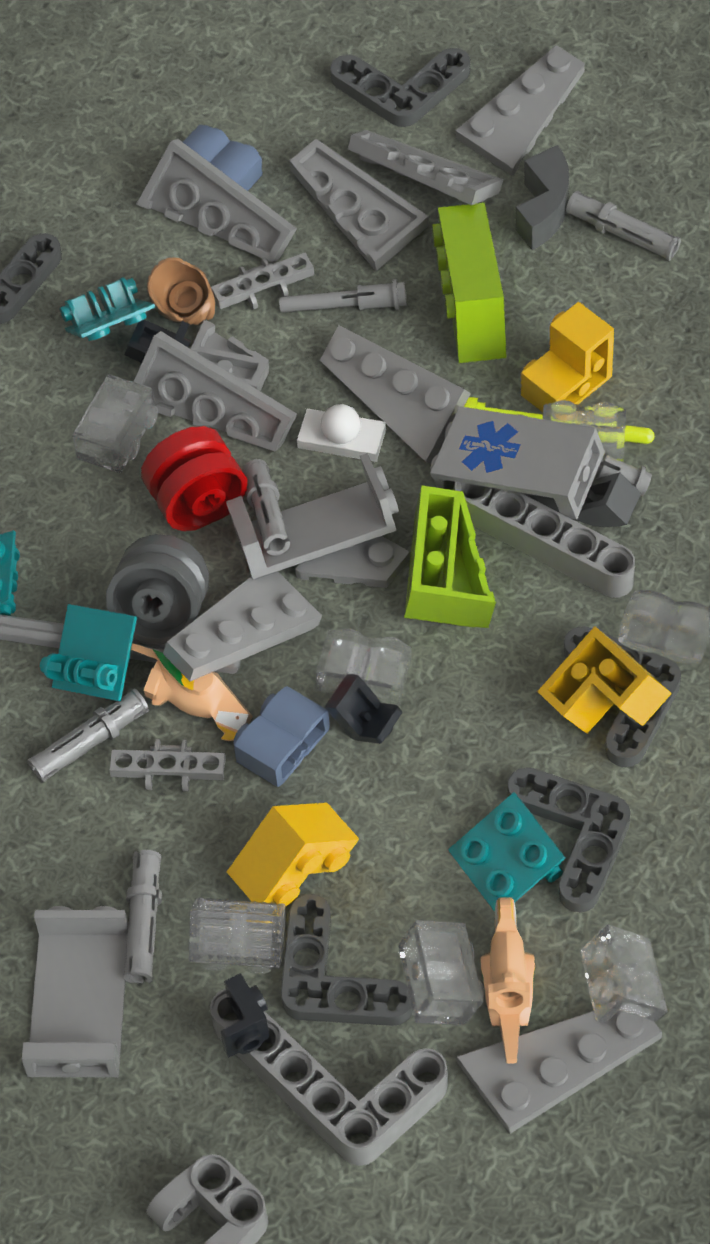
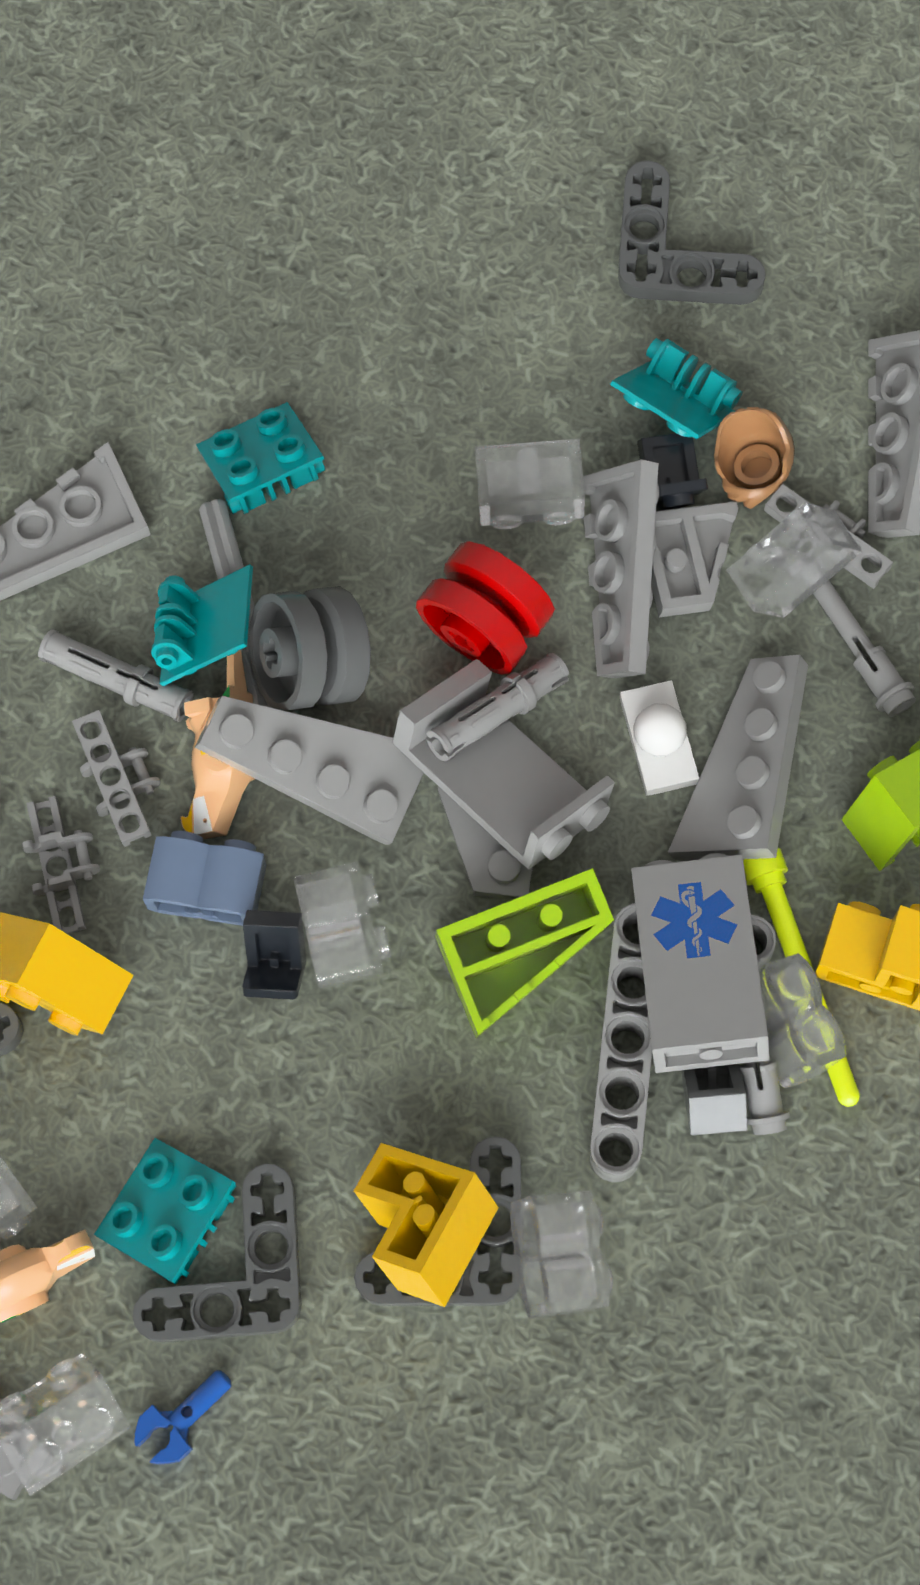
camera: 65 degrees right, 15 degrees up
(193, 820) = (53, 884): none -> light grey piece
(272, 295) = (793, 560): none -> clear brick
(658, 908) = (181, 1418): none -> blue bar

